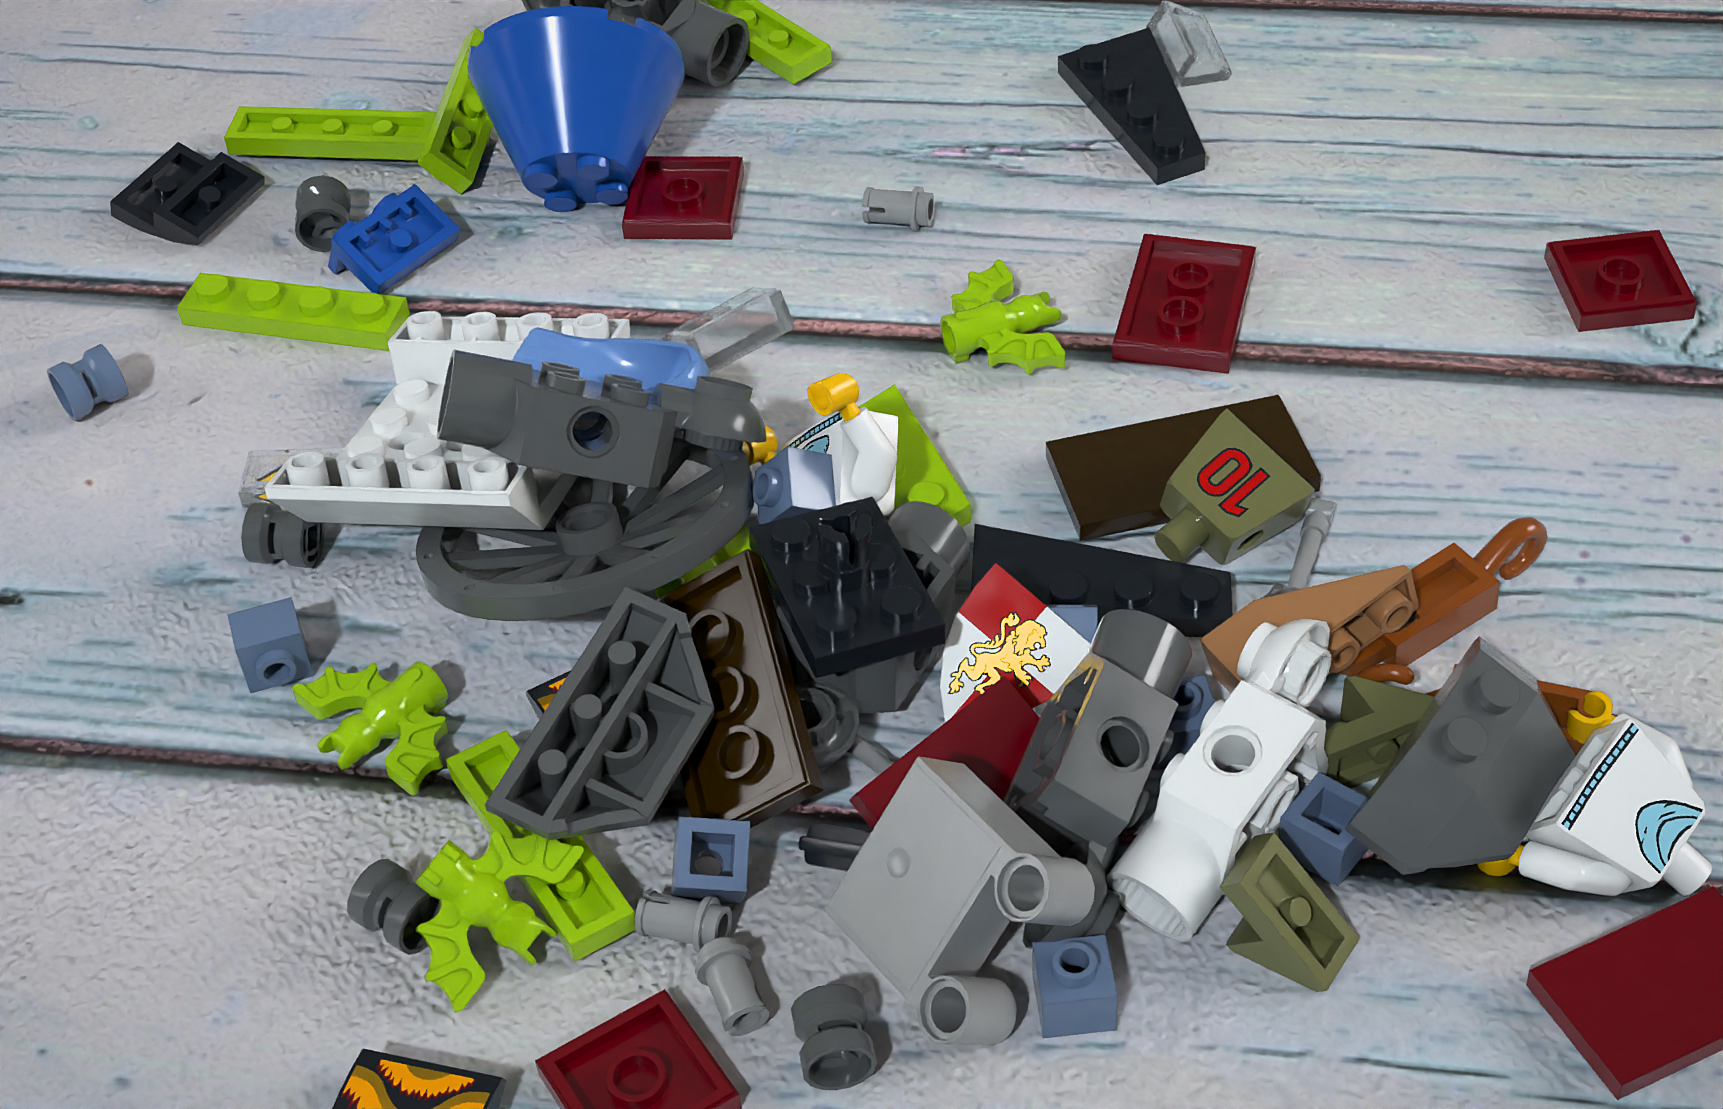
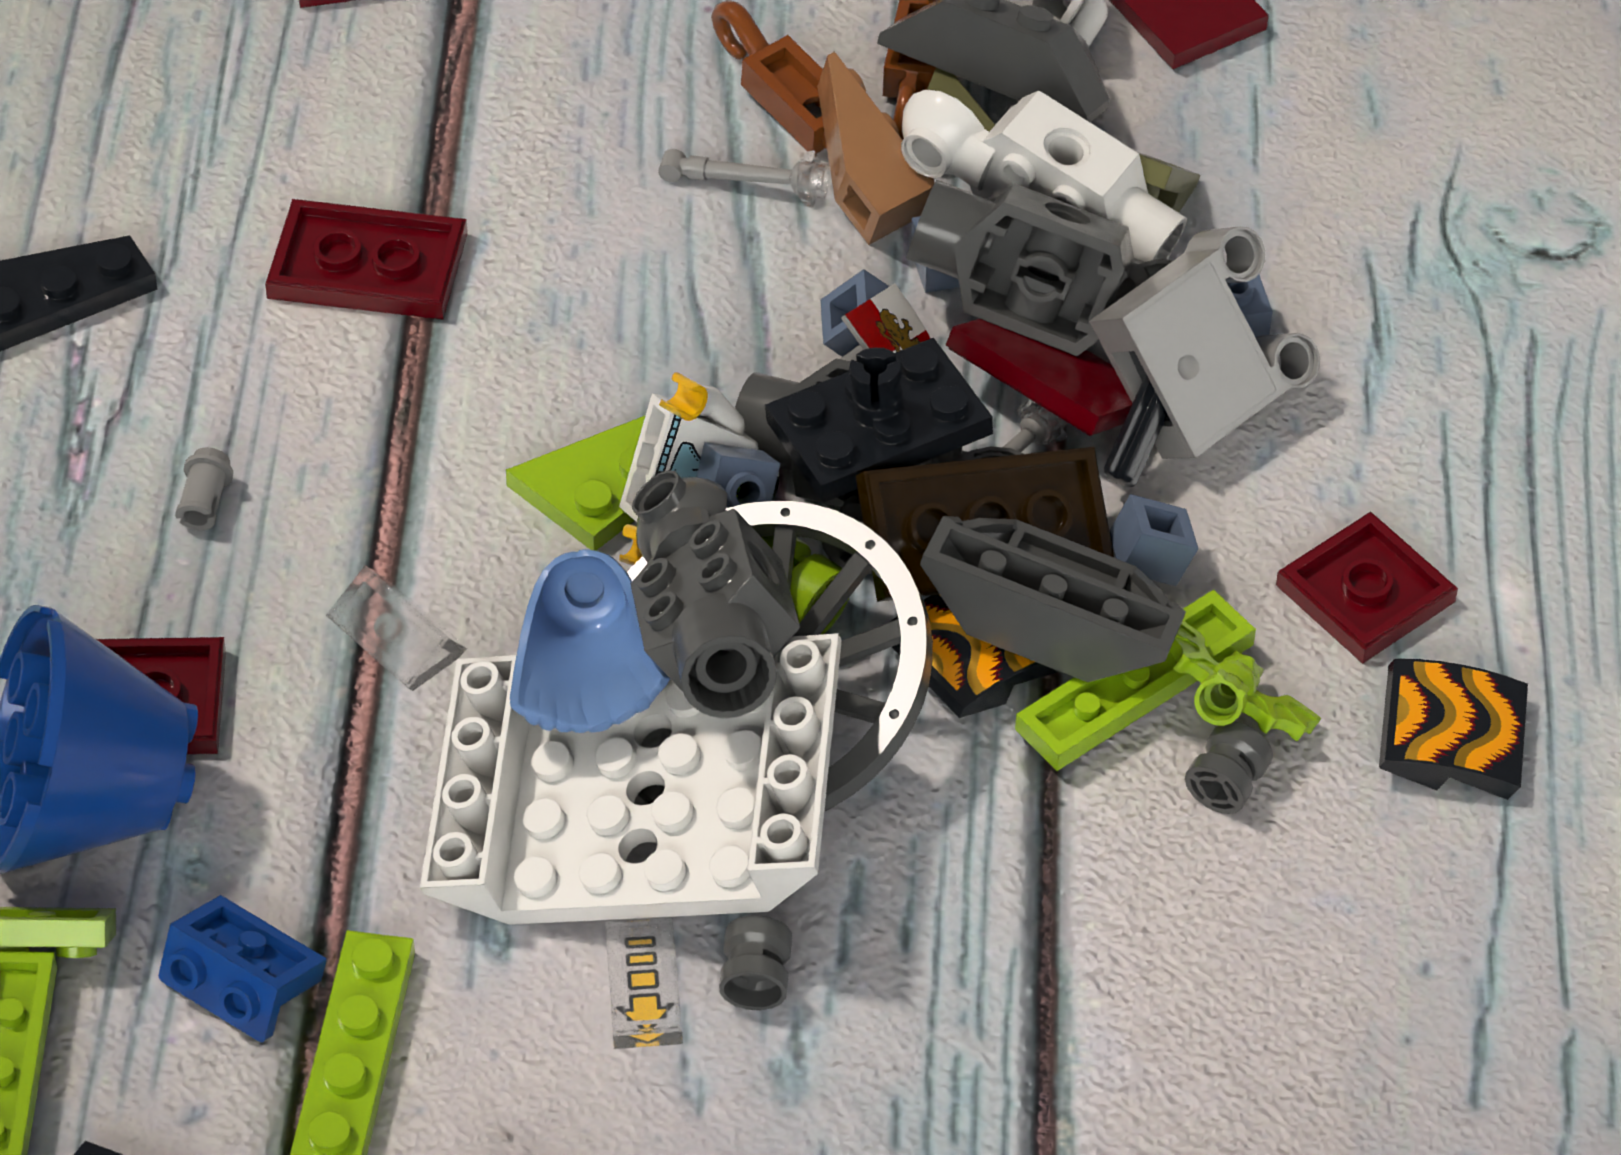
camera: 100 degrees left, 5 degrees up
(270, 645) = (920, 937): sand blue plate -> none
(321, 210) = (183, 1045): dark grey wheel -> none
(386, 713) = (992, 824): lime animal -> none
(682, 918) = (1208, 564): light grey pin -> none
(726, 971) = (1252, 532): light grey pin -> none
(835, 1046) = (1312, 450): dark grey wheel -> none
(999, 326) = (410, 397): lime animal -> none
(1081, 574) = (779, 308): black wing -> none
(1119, 474) = (615, 259): dark brown tile -> none
(1229, 495) = (686, 203): olive torso -> none

